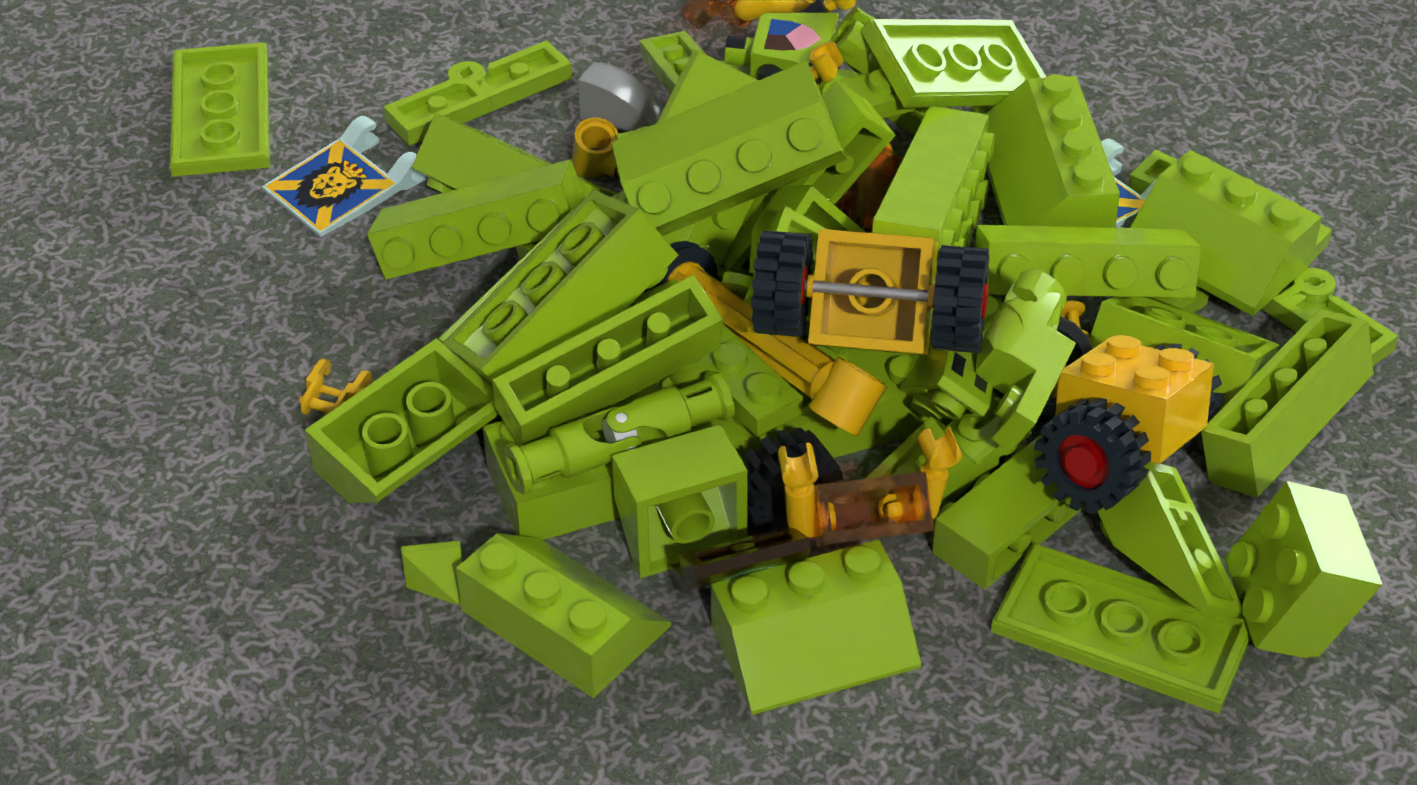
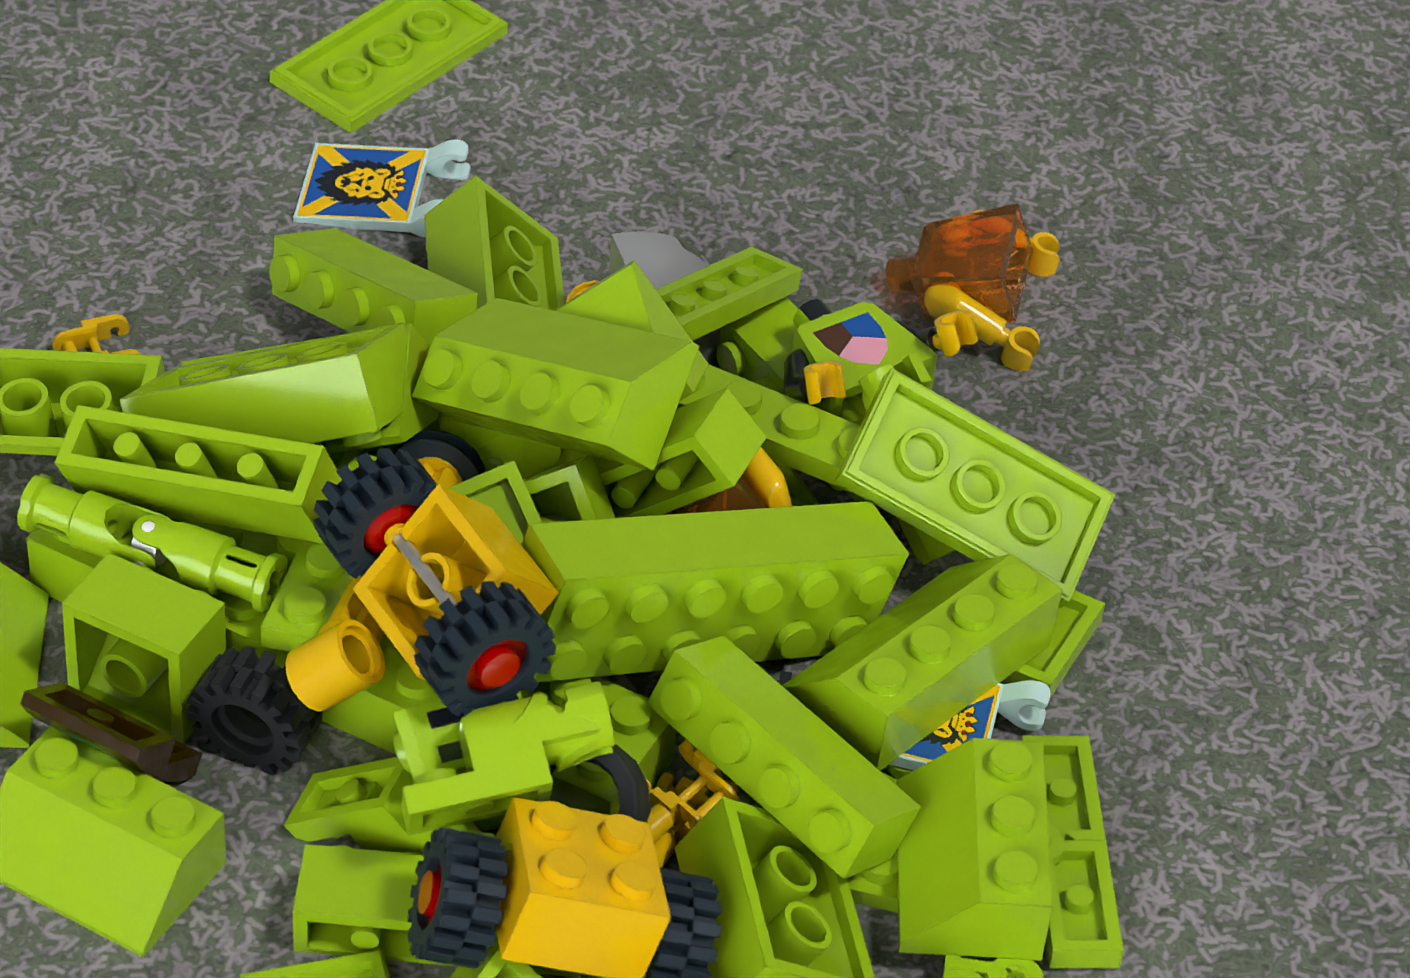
camera: 45 degrees right, 0 degrees up
(475, 93) = (602, 195): lime hinge -> none
(868, 507) = (238, 771): torso -> none

